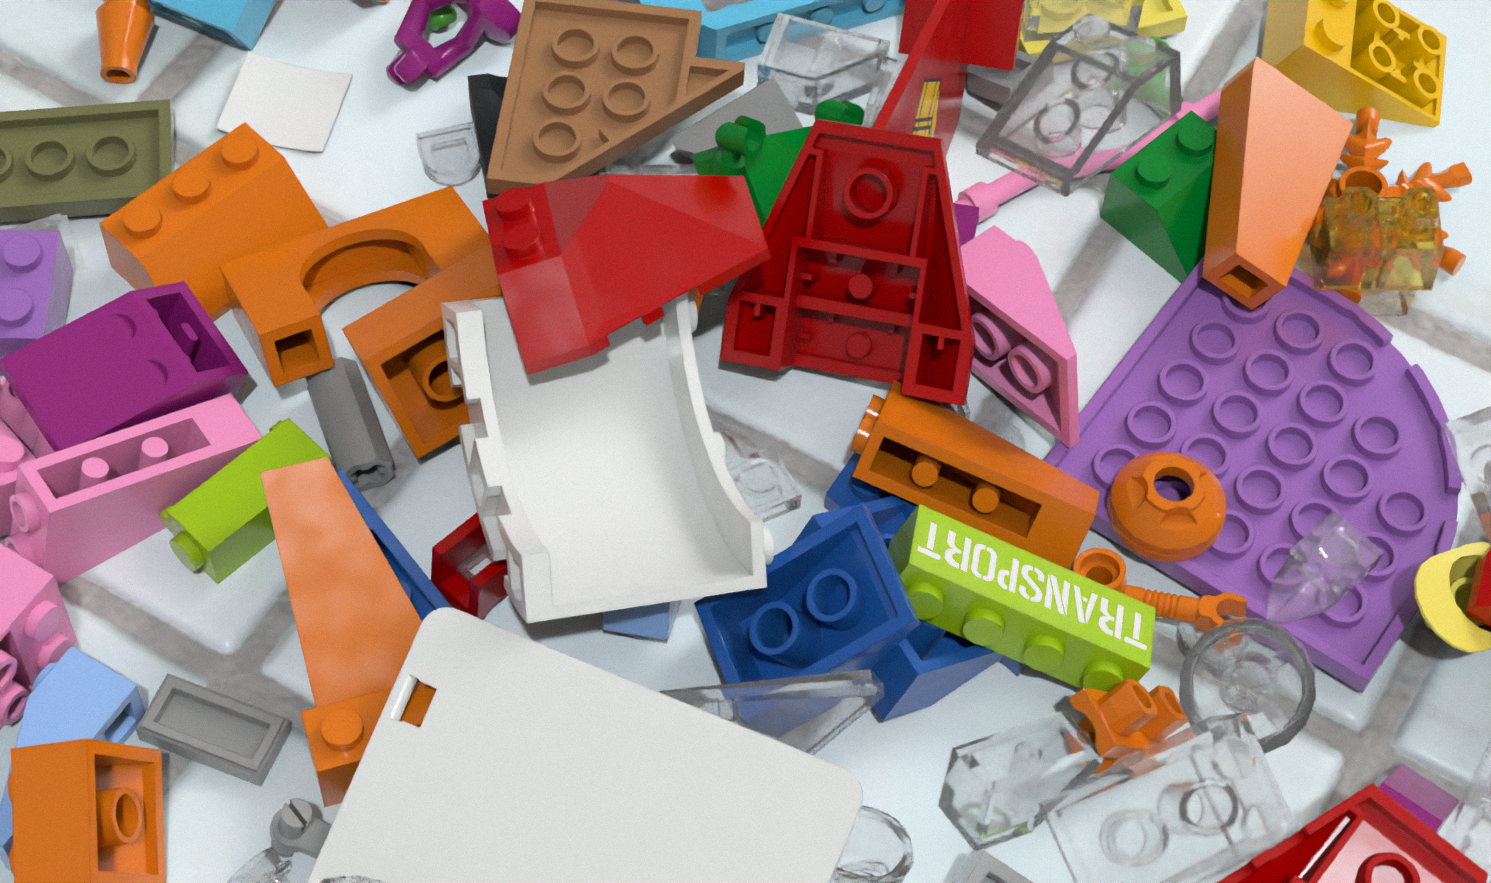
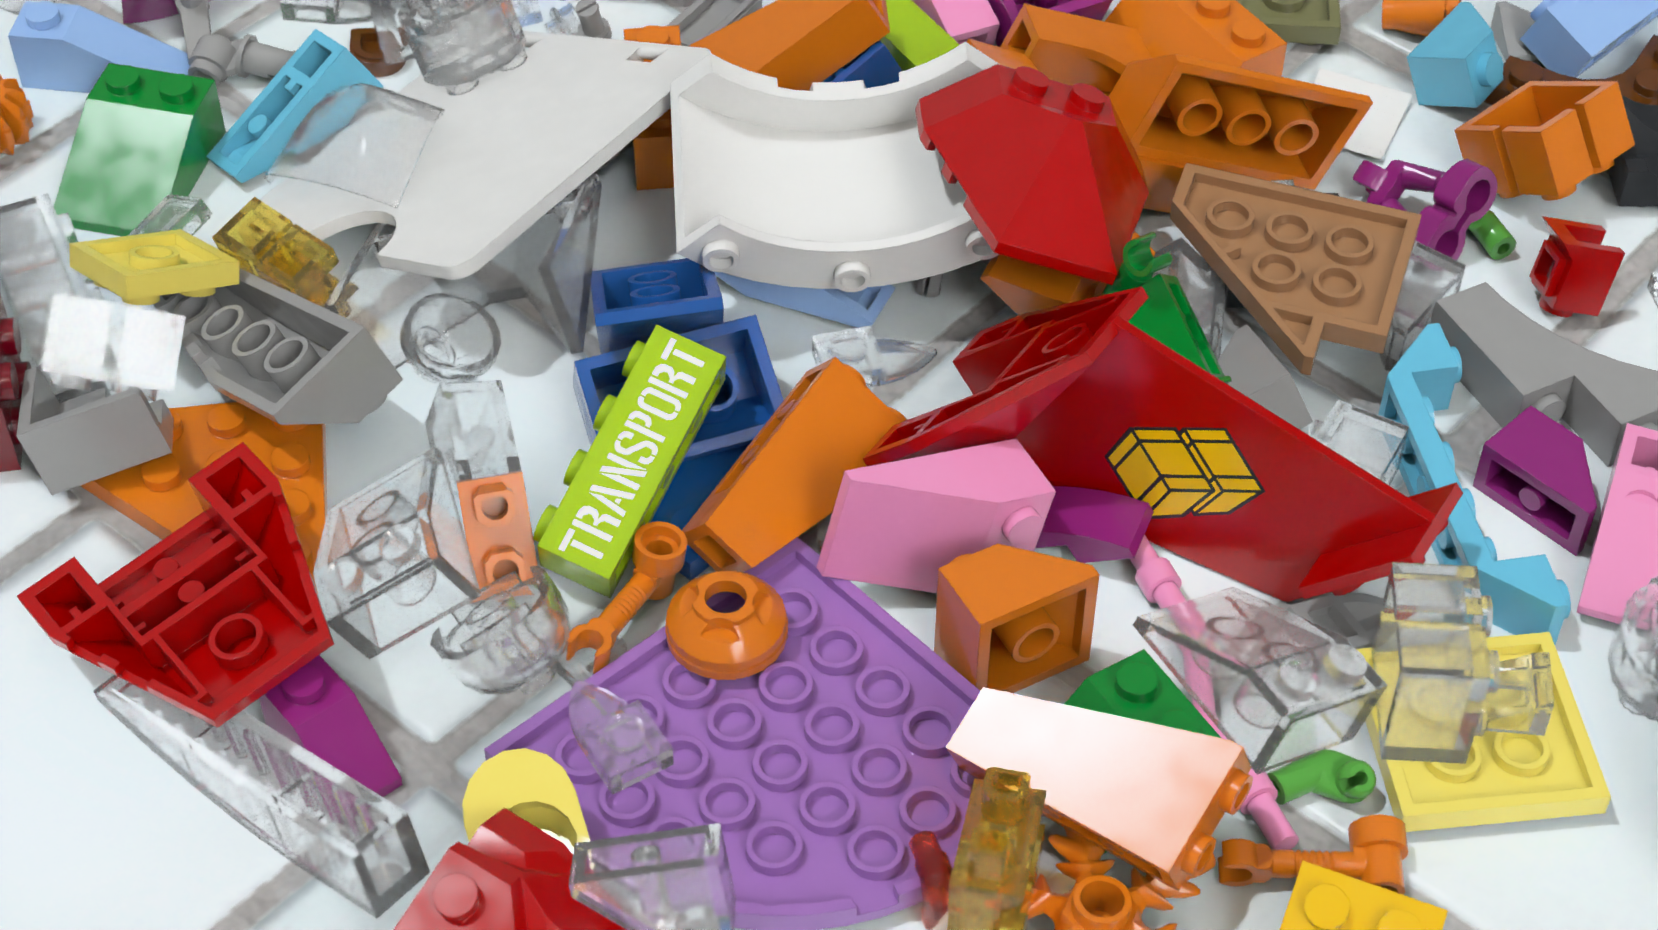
camera: 105 degrees right, 10 degrees down
(399, 148) = (1235, 118): none -> orange slope
(1108, 279) = (1014, 616): none -> orange slope
(1221, 40) = (1375, 856): none -> orange brick
(1376, 304) = (934, 874): none -> clear red animal

